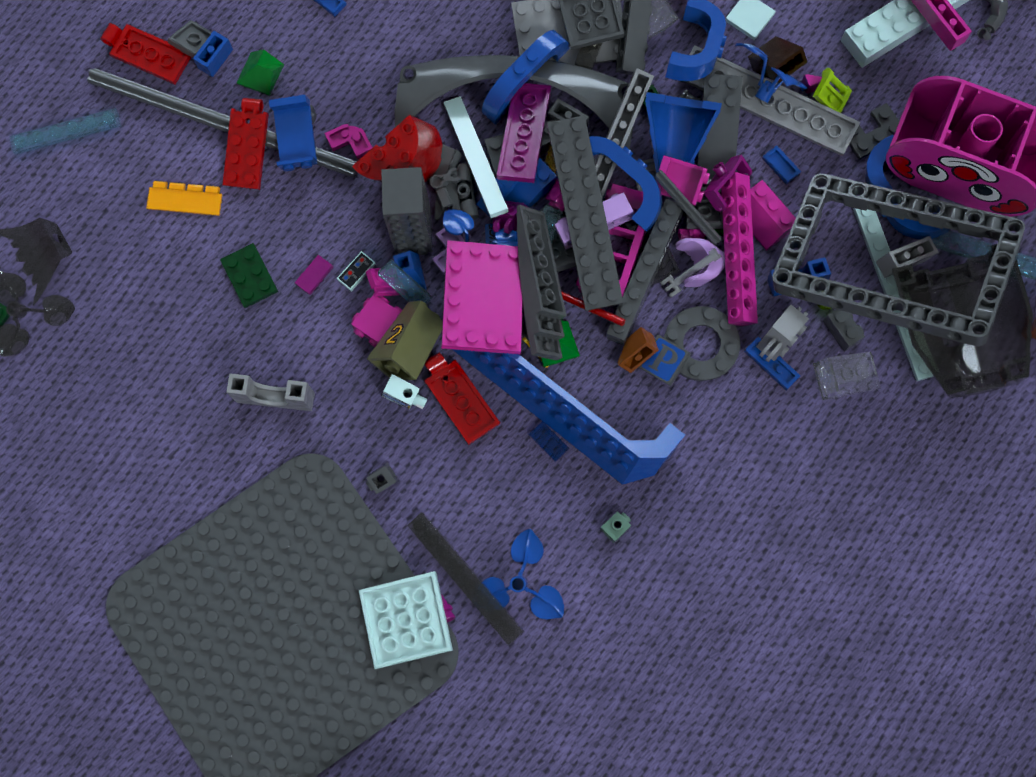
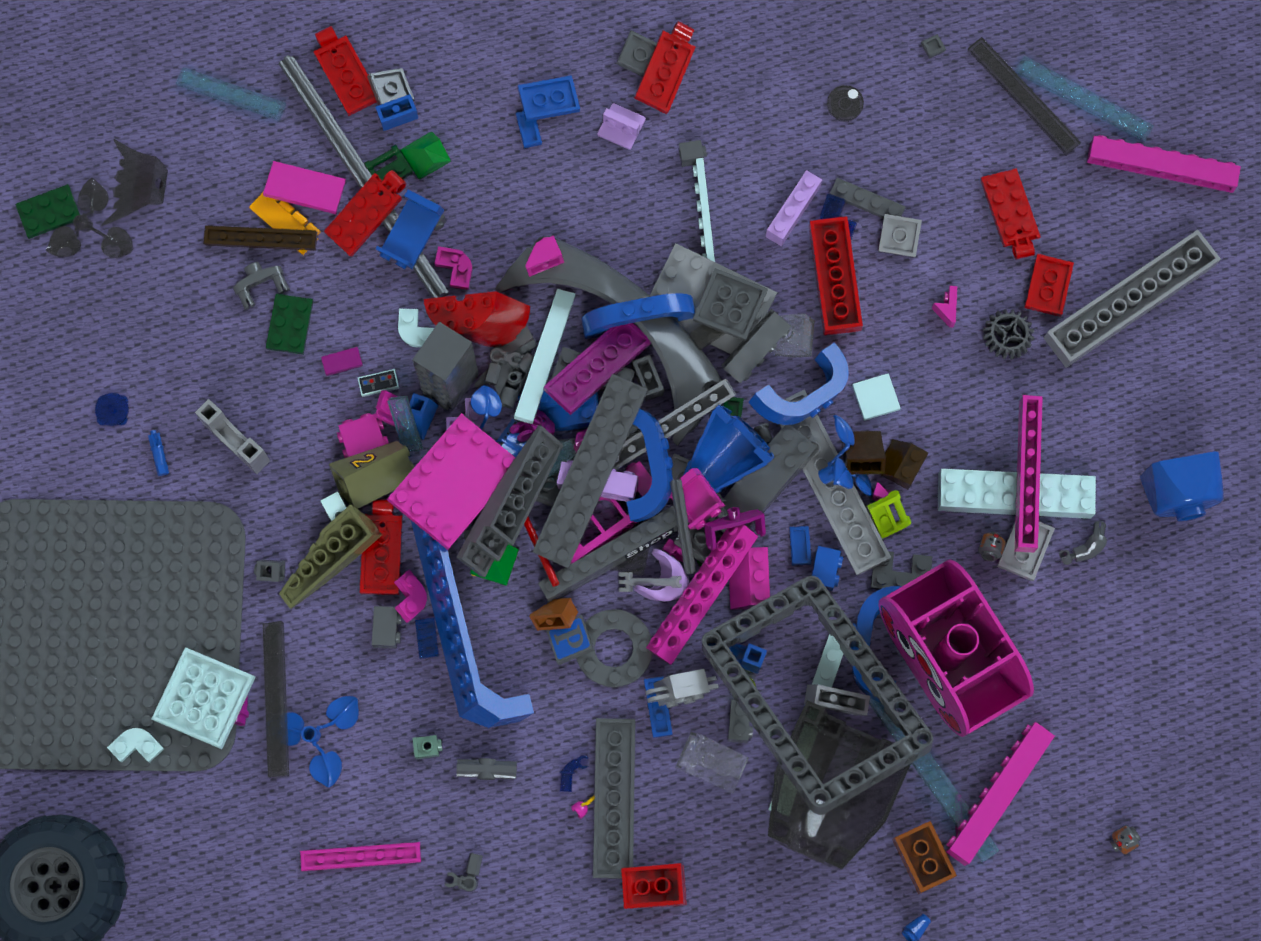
camera: 30 degrees right, 0 degrees up
(152, 444) = (112, 409): none -> clear blue piece
(174, 224) = (260, 238): none -> dark brown plate
(181, 161) = (304, 187): none -> dark pink tile
(194, 255) = (256, 276): none -> dark grey connector
(217, 451) = (158, 453): none -> blue piece
(244, 92) = (399, 166): none -> dark green plate
(355, 215) = (409, 329): none -> light aqua plate
(374, 695) = (135, 739): none -> light aqua plate
(418, 77) = (544, 256): none -> dark pink slope
(422, 426) = (332, 552): none -> olive wedge
(510, 455) = (385, 627): none -> dark grey brick
(515, 415) = (414, 593): none -> dark pink plate
(630, 654) = (360, 856): none -> dark pink tile
(677, 509) = (486, 769): none -> dark grey piece
(727, 595) = (468, 882): none -> dark grey bar
(742, 466) = (568, 771): none -> clear blue piece
(774, 484) = (582, 807): none -> dark pink hinge
(794, 459) = (614, 797): none -> dark grey plate
(813, 162) = (826, 565): none -> blue brick
(816, 47) = (903, 462): none -> dark brown slope
(881, 503) = (654, 886): none -> red slope
(925, 63) = (991, 546): none -> dark grey head
(948, 61) = (1025, 563): none -> light grey plate

